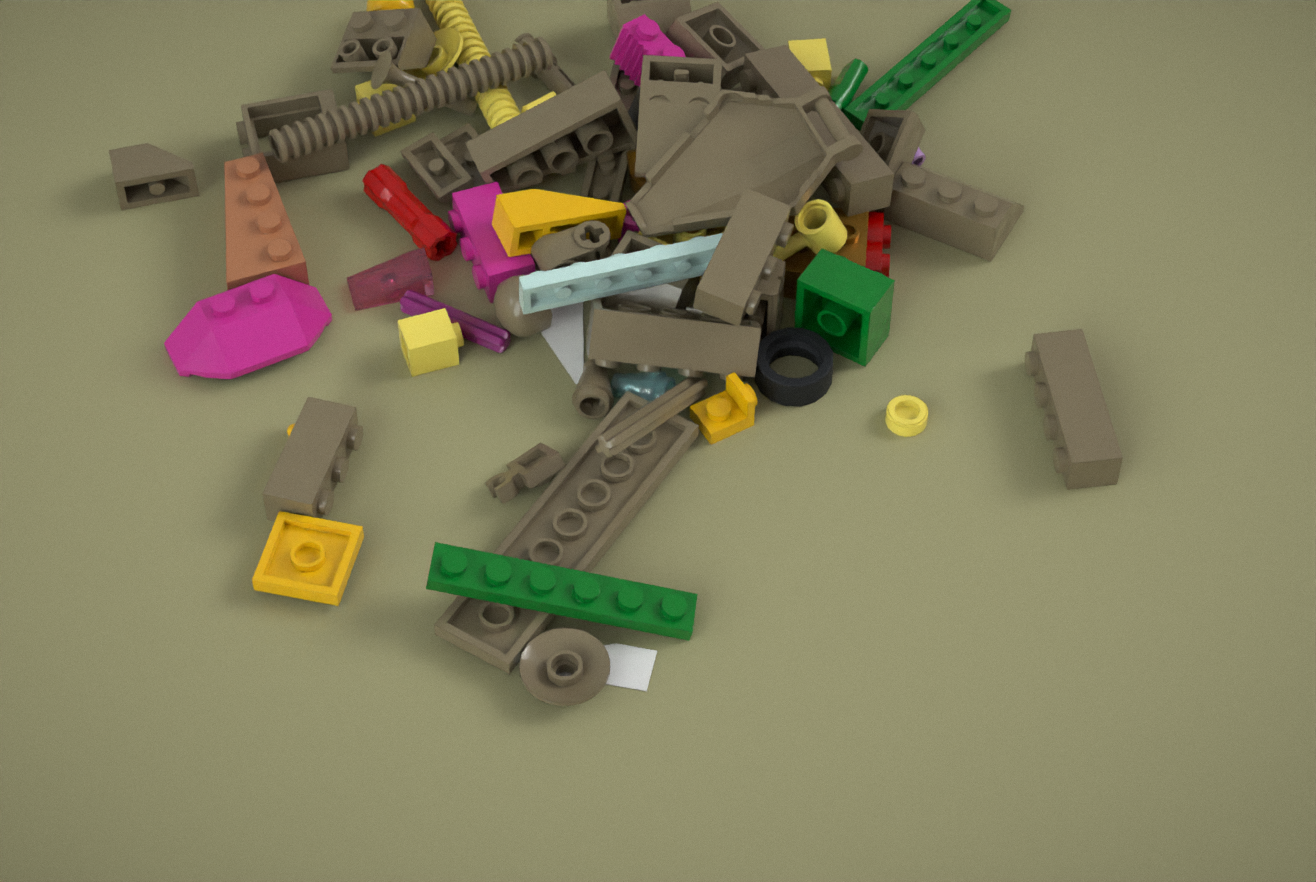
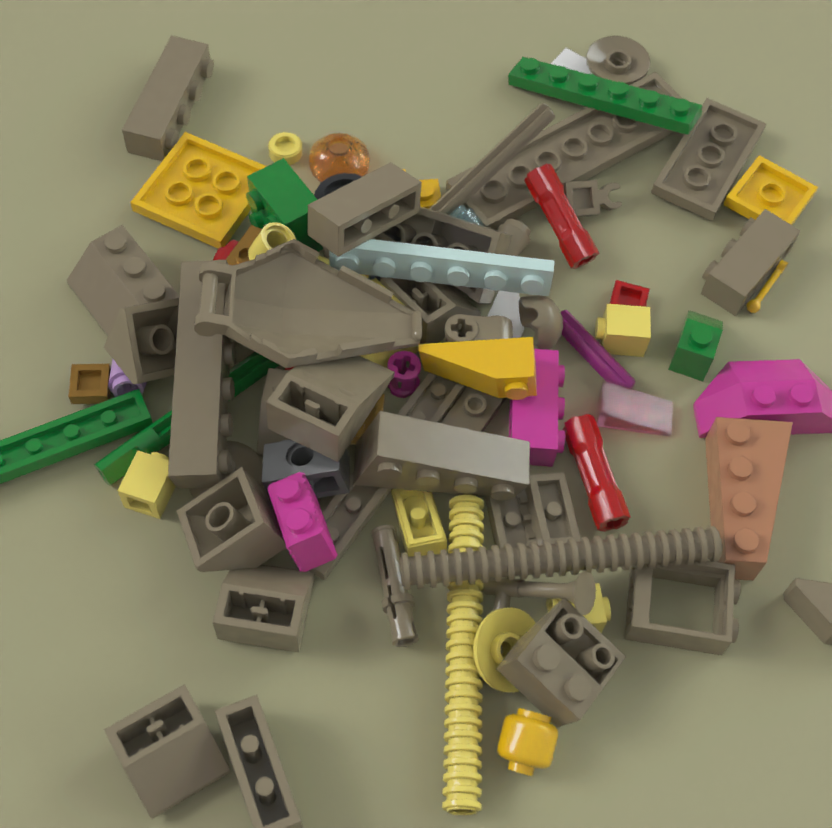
camera: 160 degrees left, 10 degrees up
(346, 358) = (696, 346): none -> green slope
(388, 600) = (708, 159): none -> dark tan plate
(437, 388) = (629, 294): none -> red tile
(524, 412) = (549, 194): none -> red axle
(838, 438) = (326, 163): none -> clear orange piece
(933, 122) = (89, 383): none -> pearl gold plate
(958, 329) = (198, 191): none -> yellow plate

